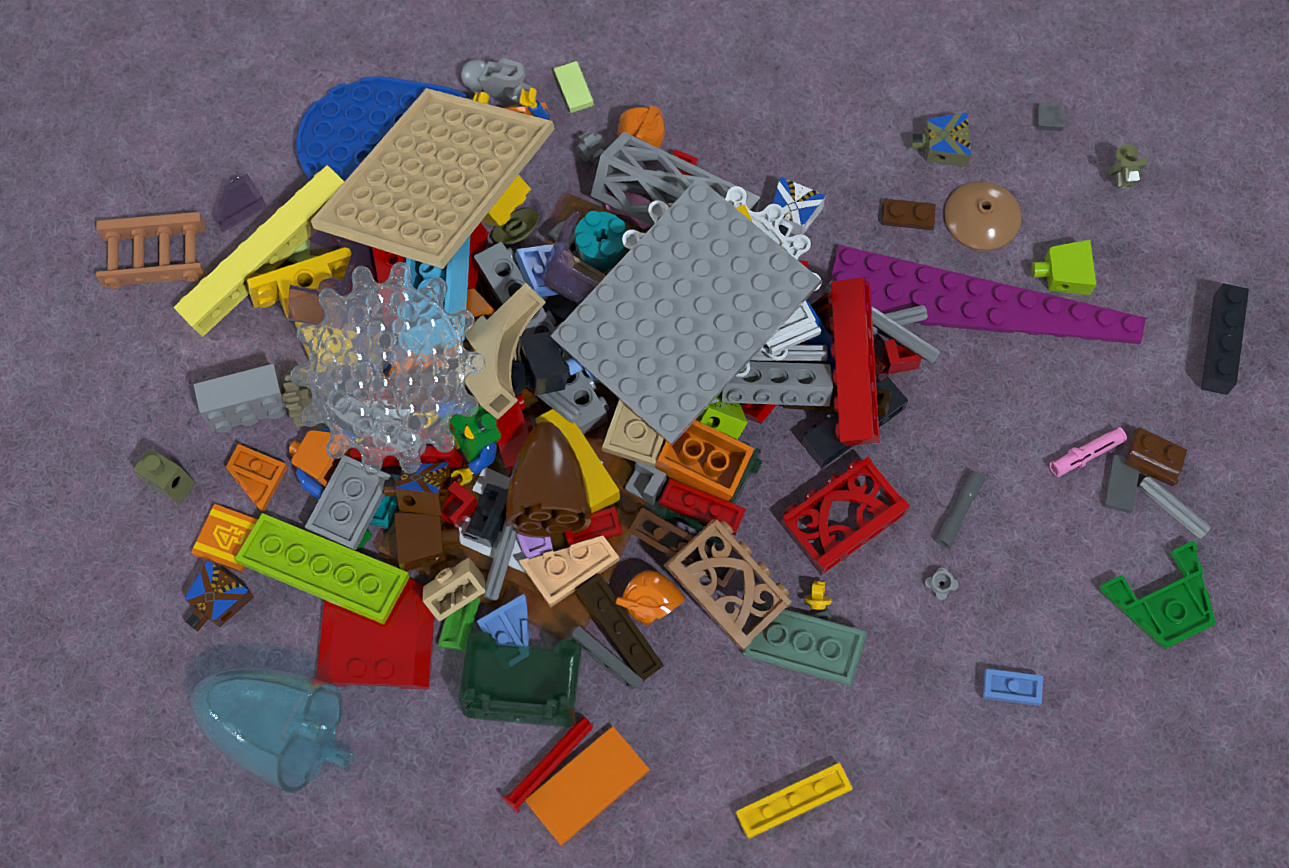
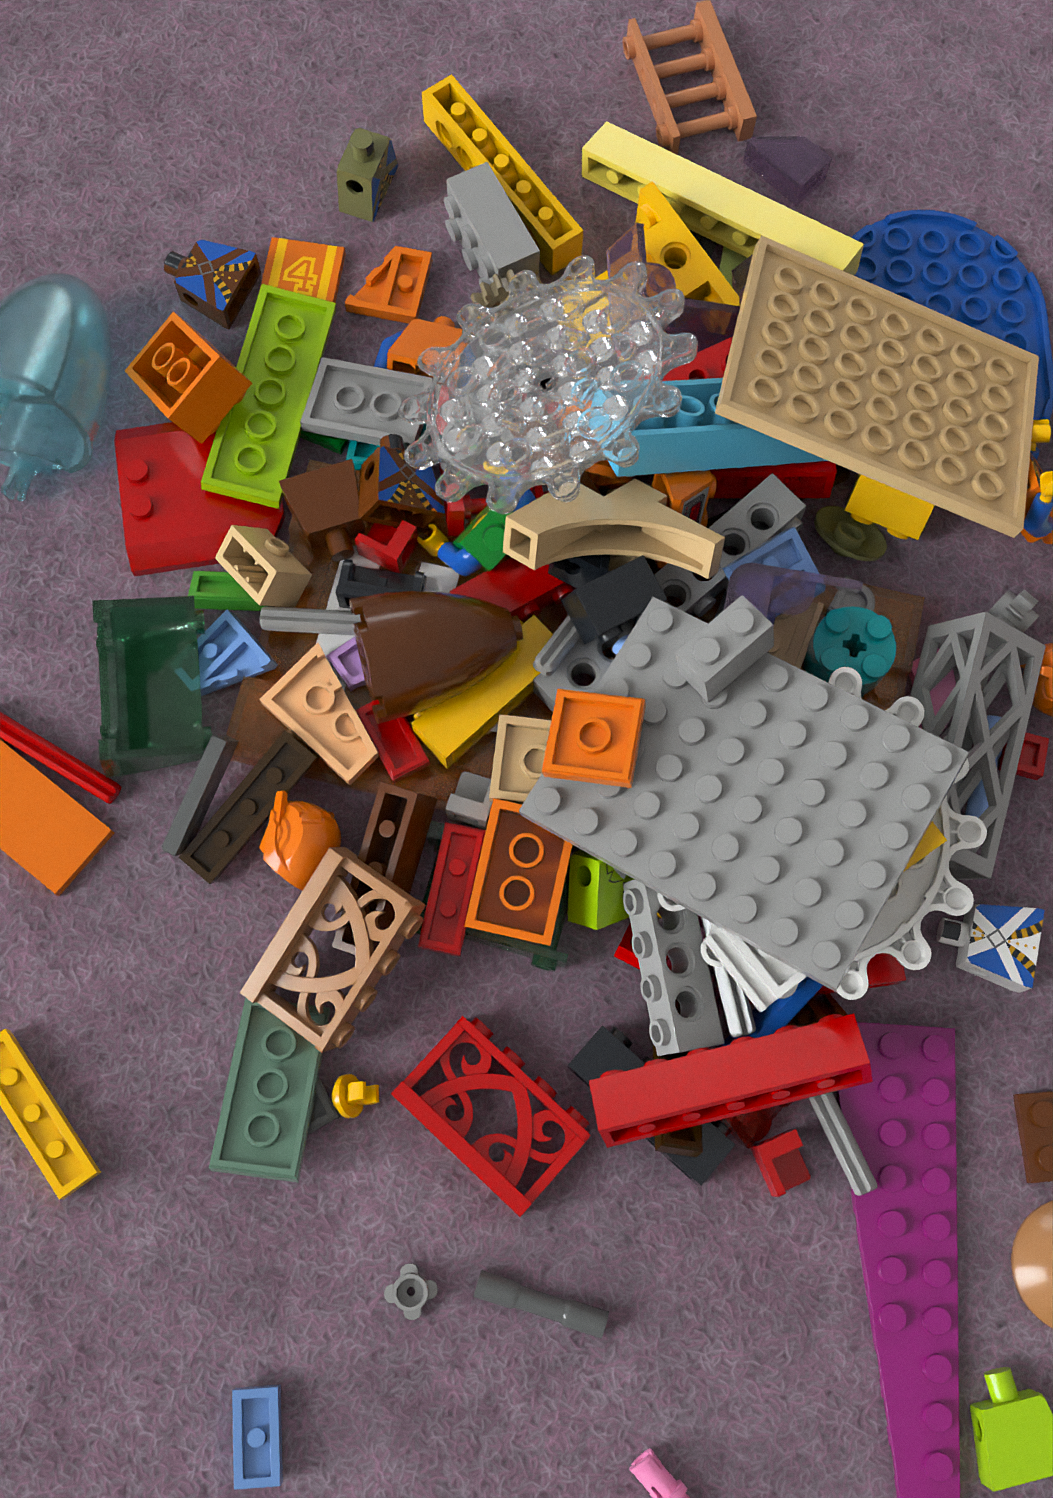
camera: 75 degrees right, 5 degrees up
(177, 391) = (476, 140): none -> yellow brick
(299, 616) = (188, 378): none -> orange brick
(603, 294) = (725, 648): none -> light grey brick
(639, 384) = (594, 738): none -> orange plate
(901, 334) = (819, 1142): light grey axle -> none

